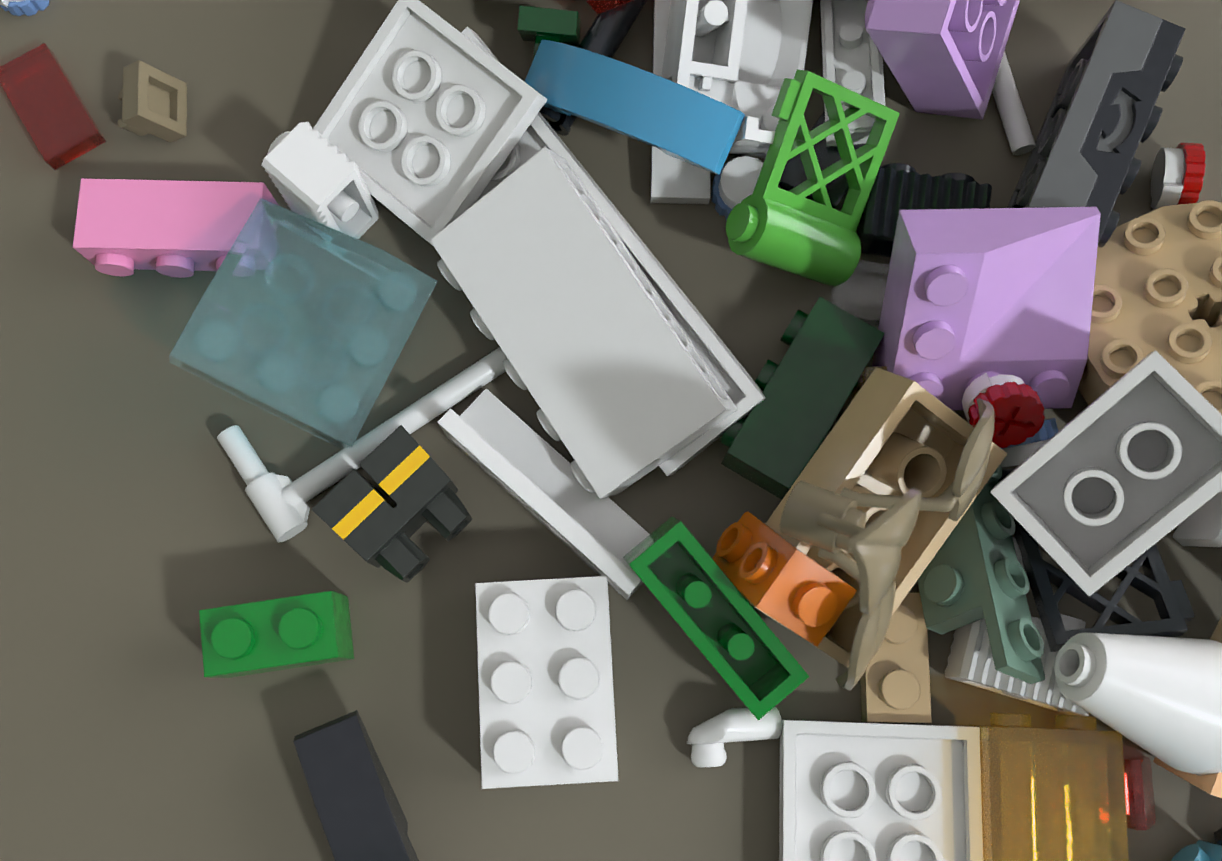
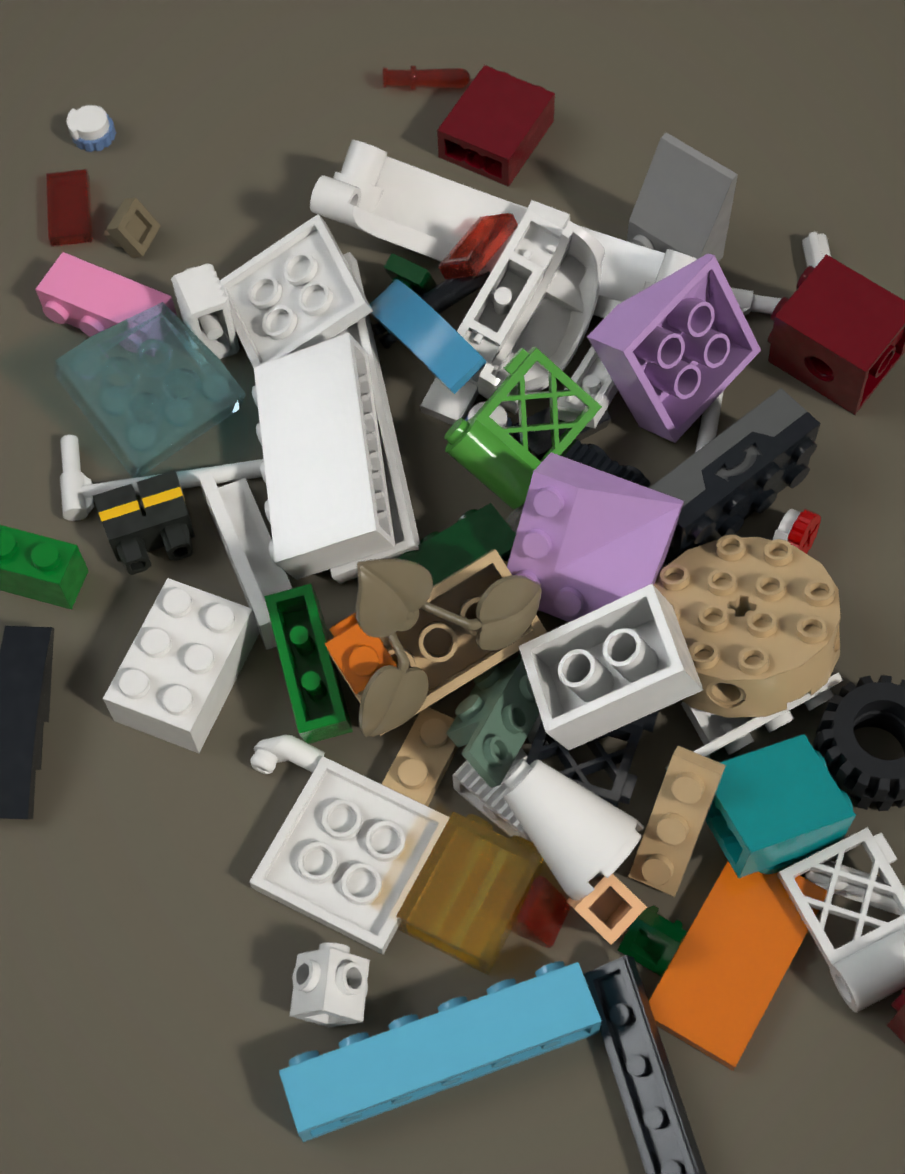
camera: 30 degrees right, 15 degrees down
(1015, 405) = (565, 606): red piece -> none

